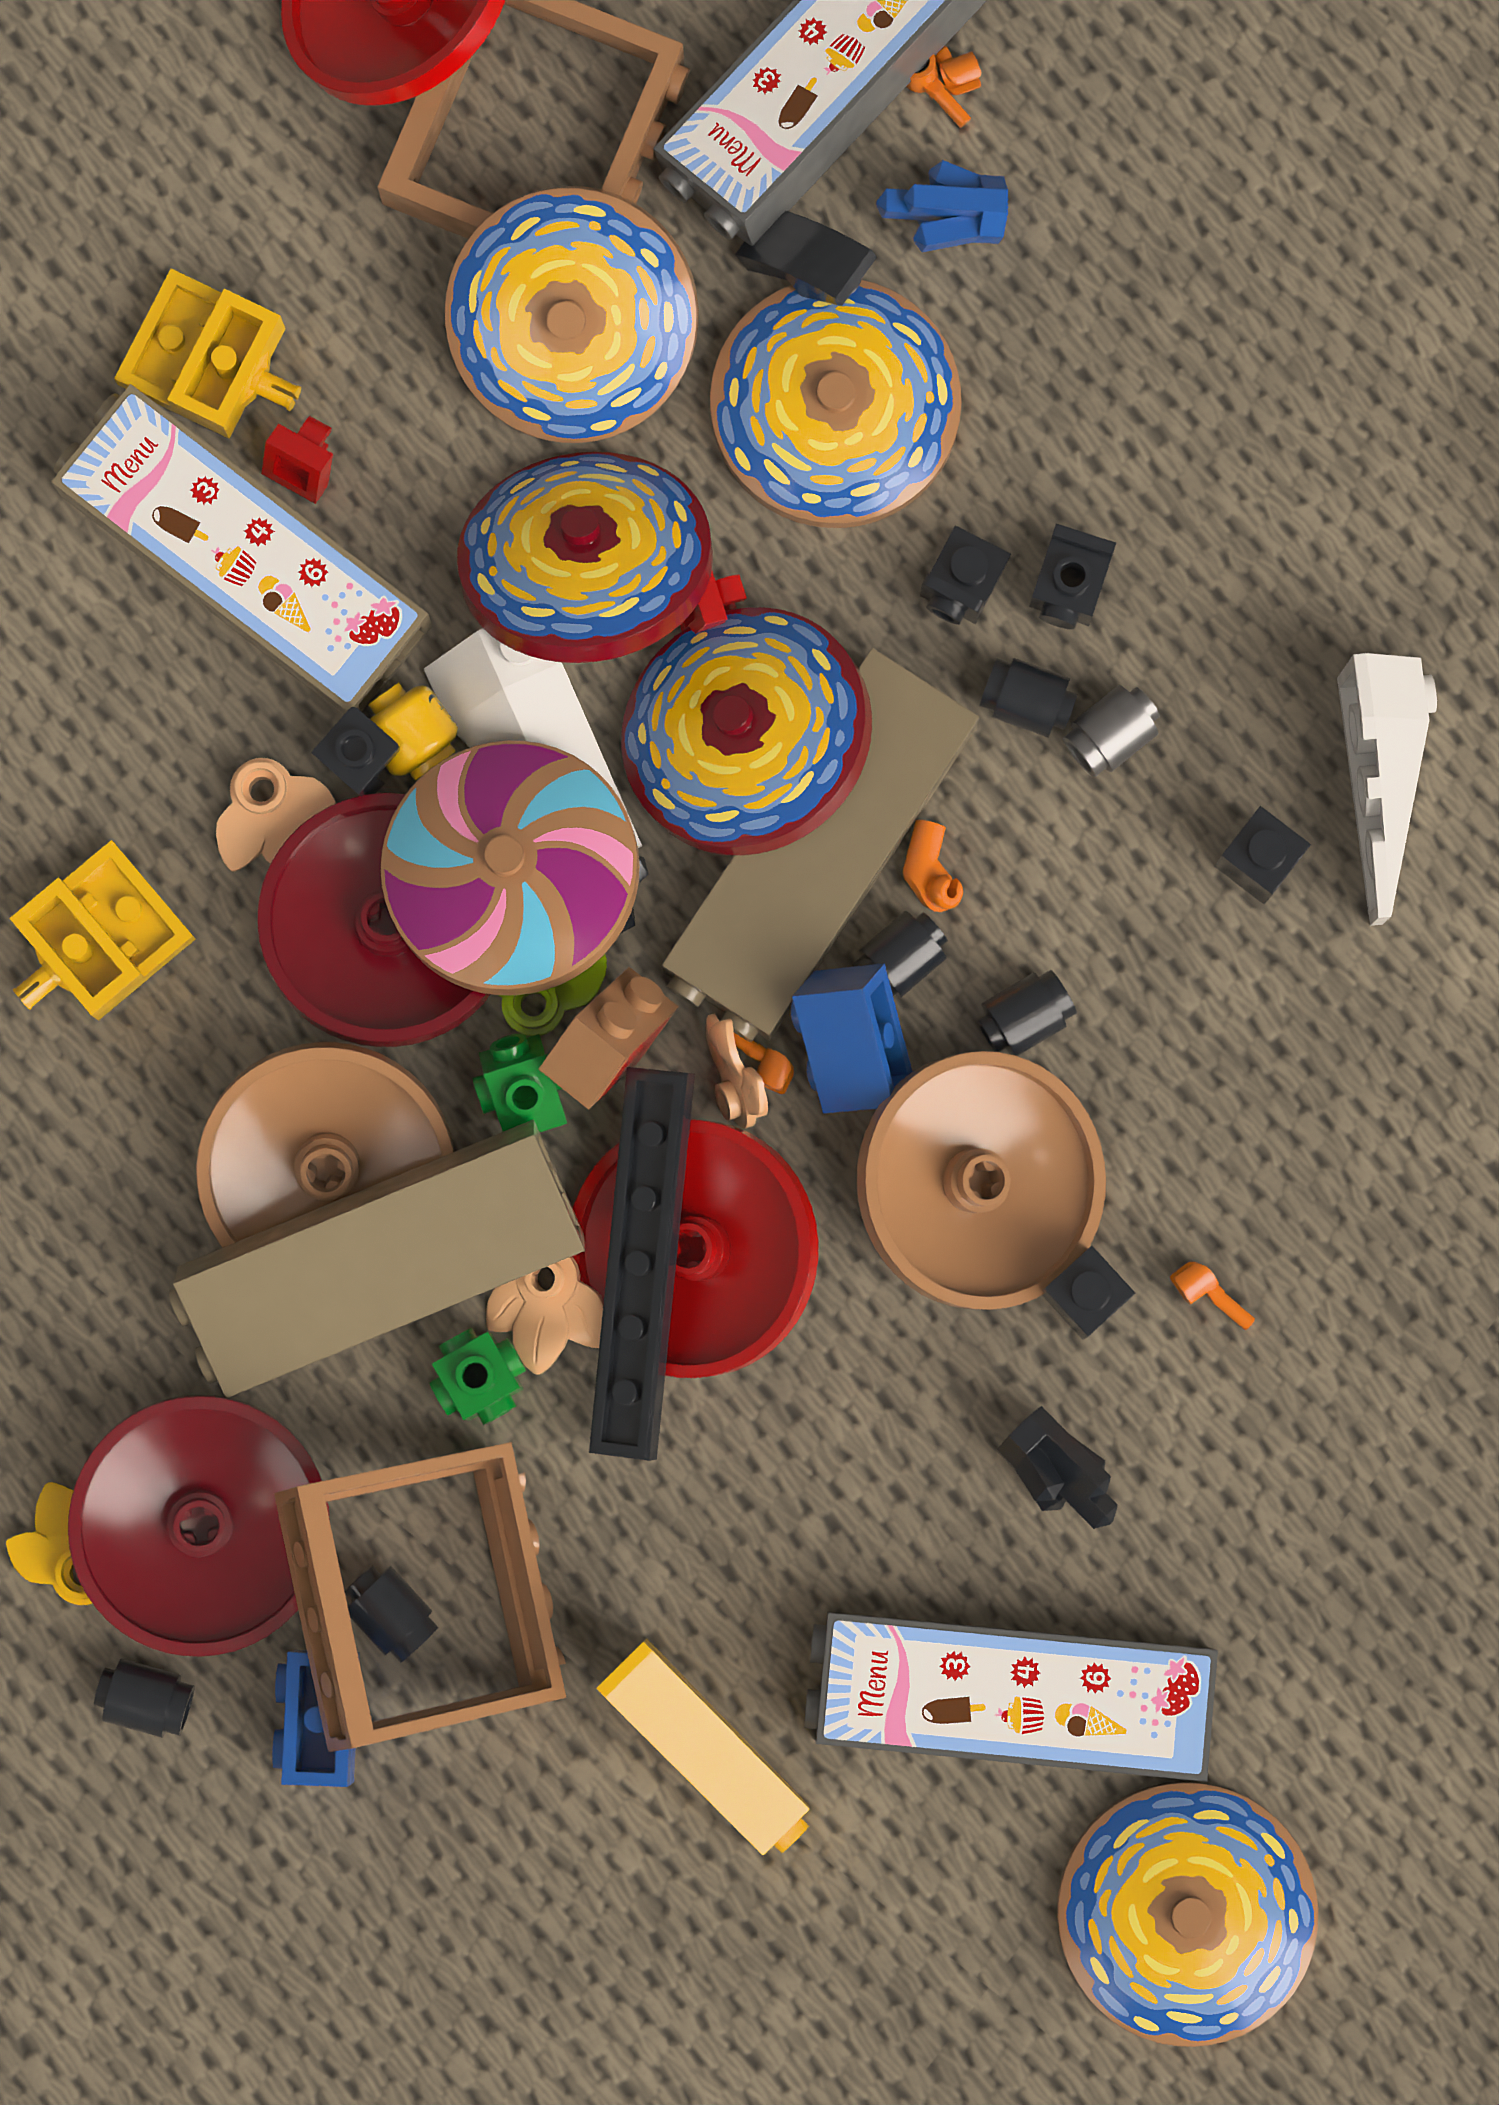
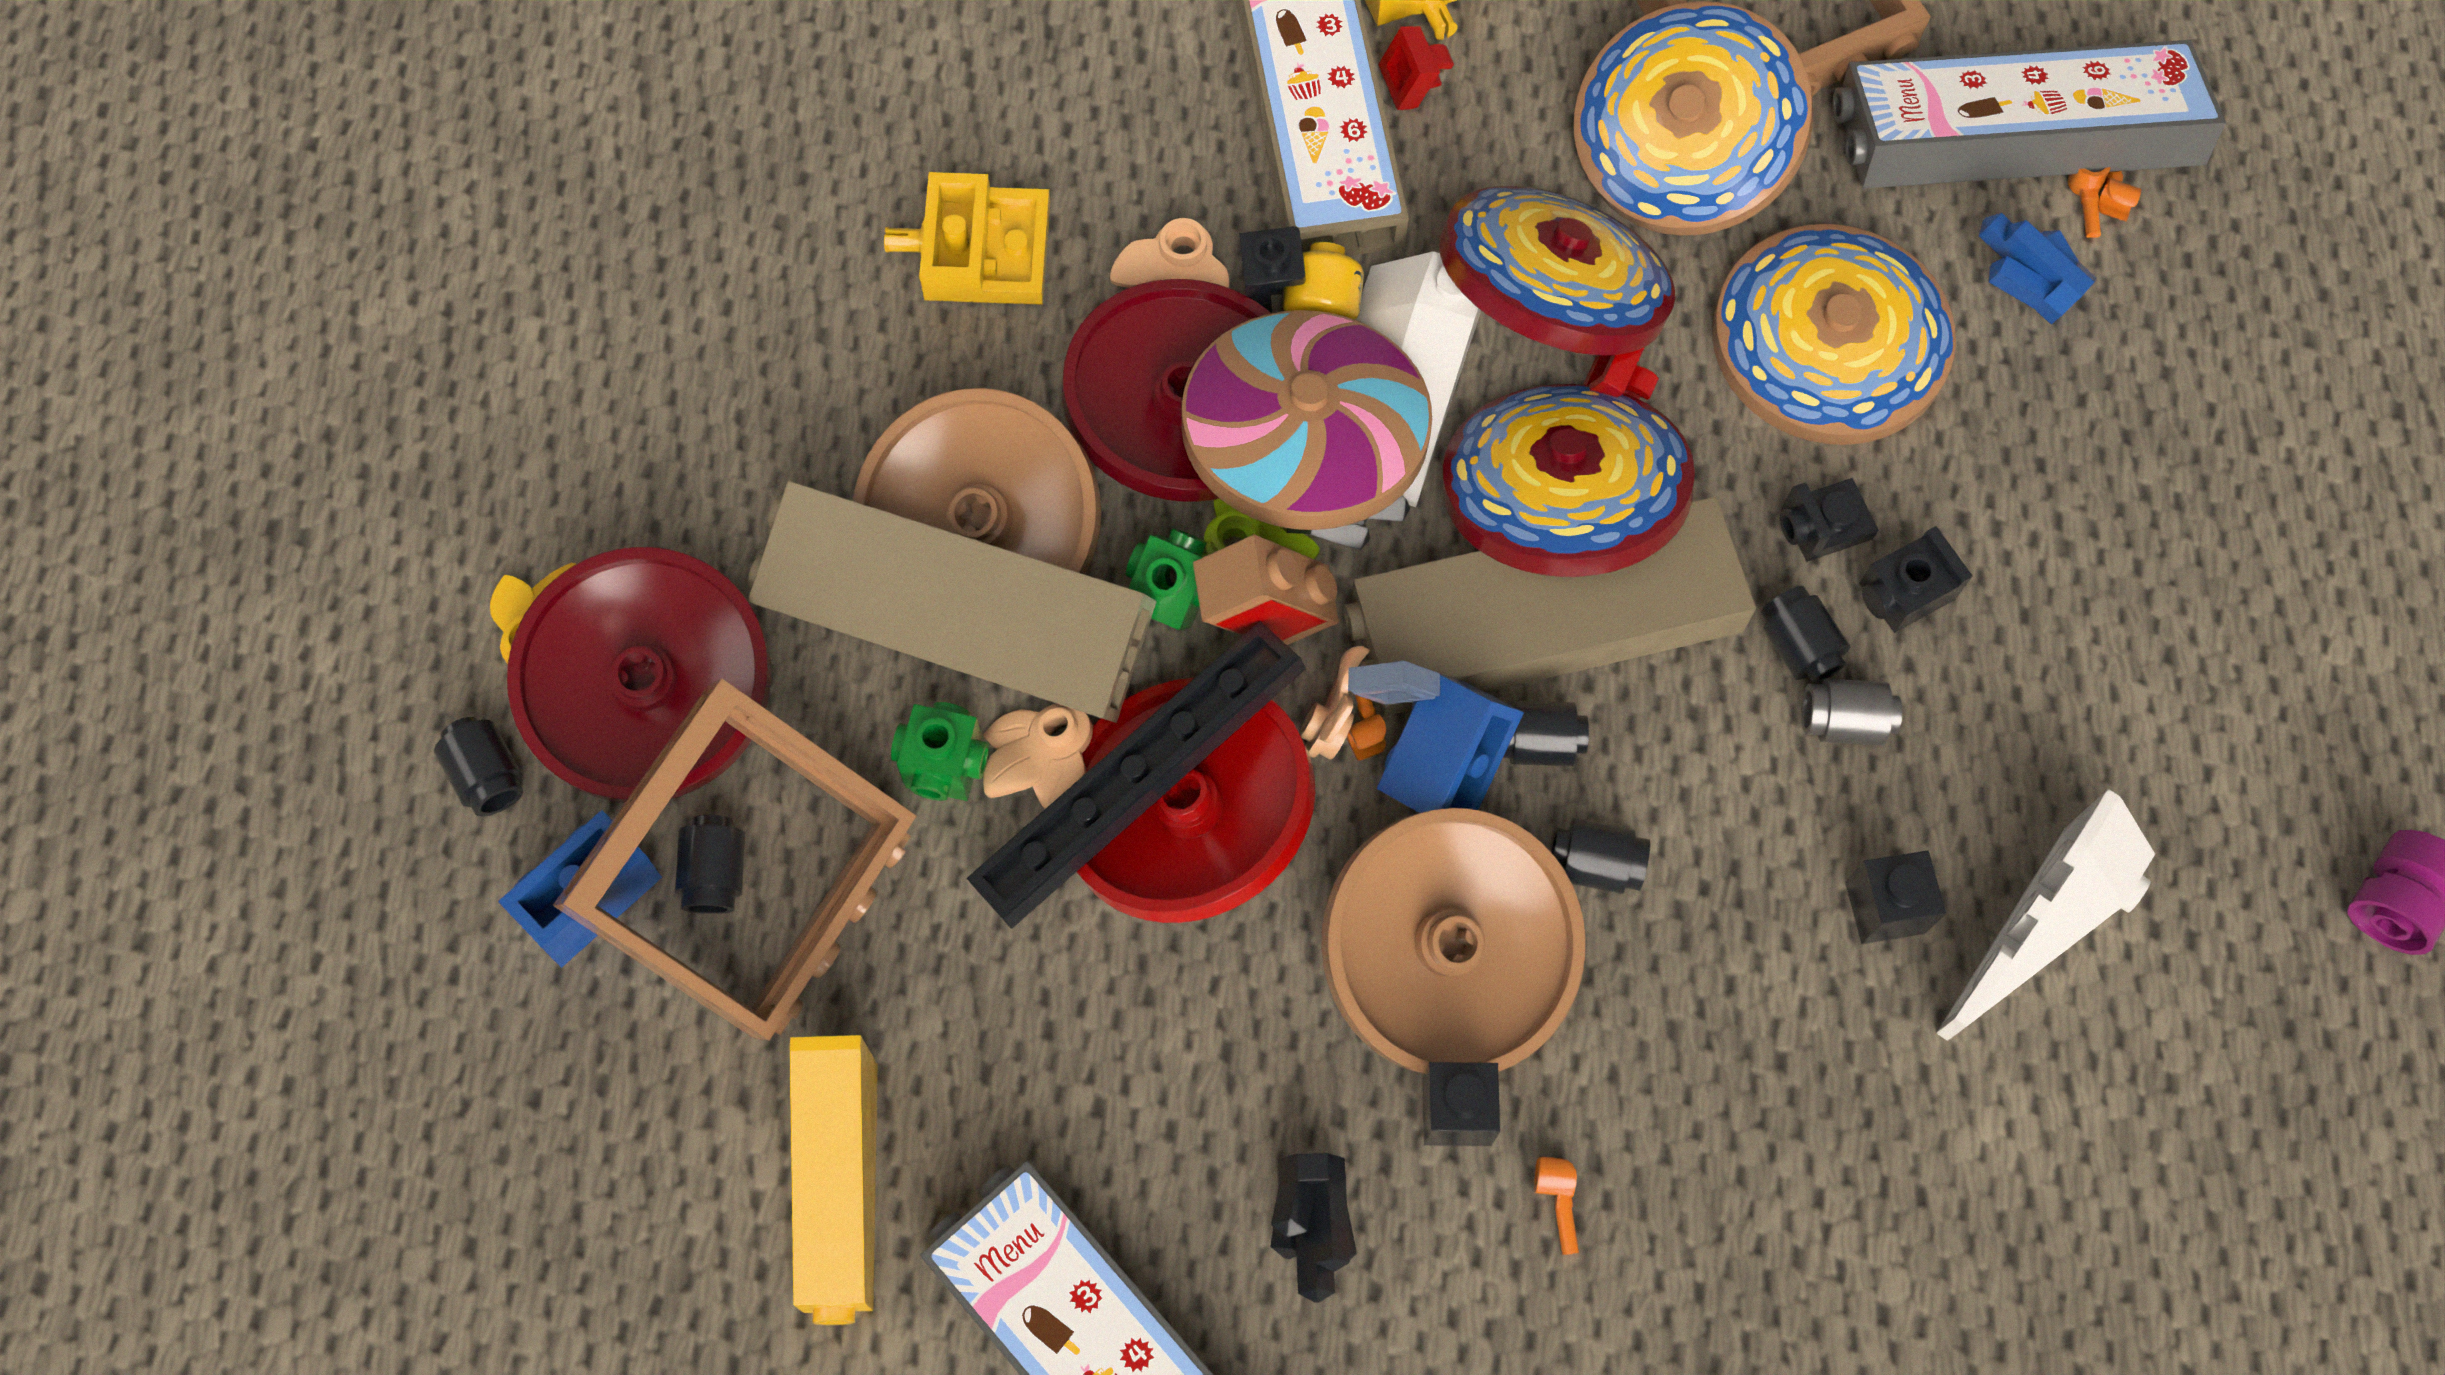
camera: 40 degrees right, 15 degrees down
(776, 1033) = (1394, 682): none -> sand blue tile
(810, 256) = (1901, 219): black slope -> none
(924, 871) = (1613, 693): orange arm -> none

